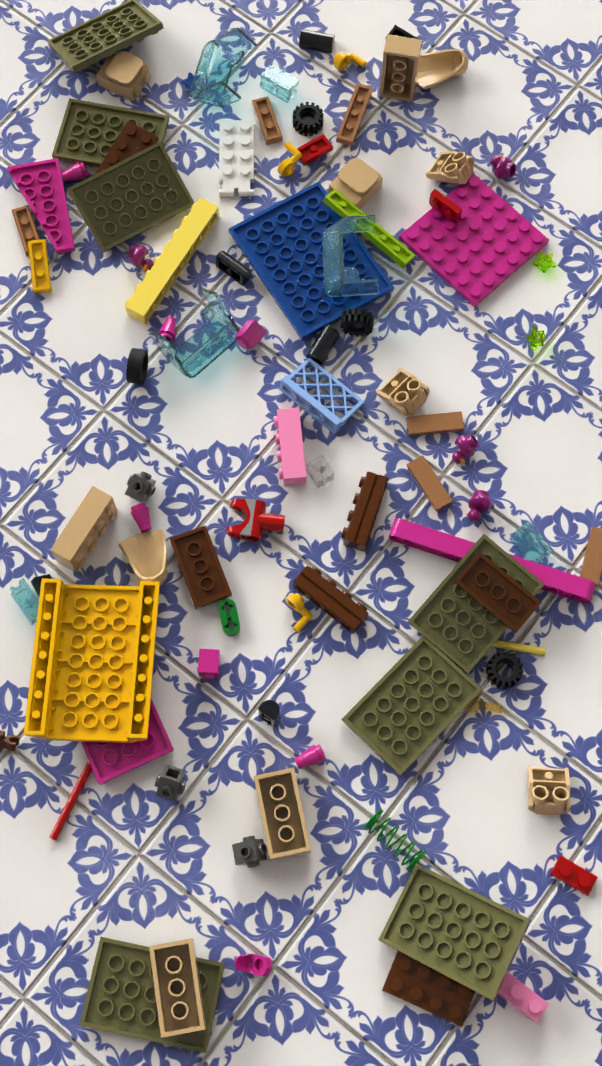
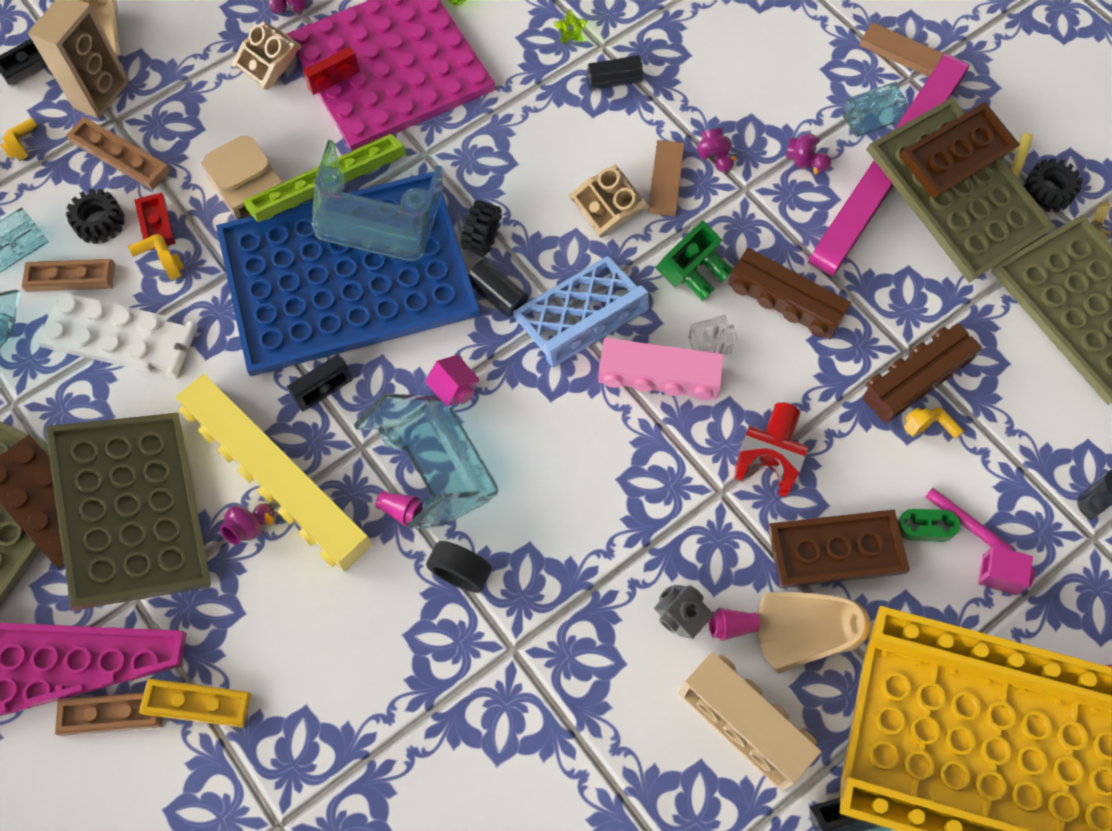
camera: 75 degrees left, 5 degrees down
(75, 172) = (29, 598): dark pink cone -> none
(237, 642) = (966, 520): none -> dark pink bar
(369, 442) = (695, 249): none -> green brick
(429, 483) = (757, 206): medium nougat tile -> none
(506, 373) = (614, 72): none -> black brick

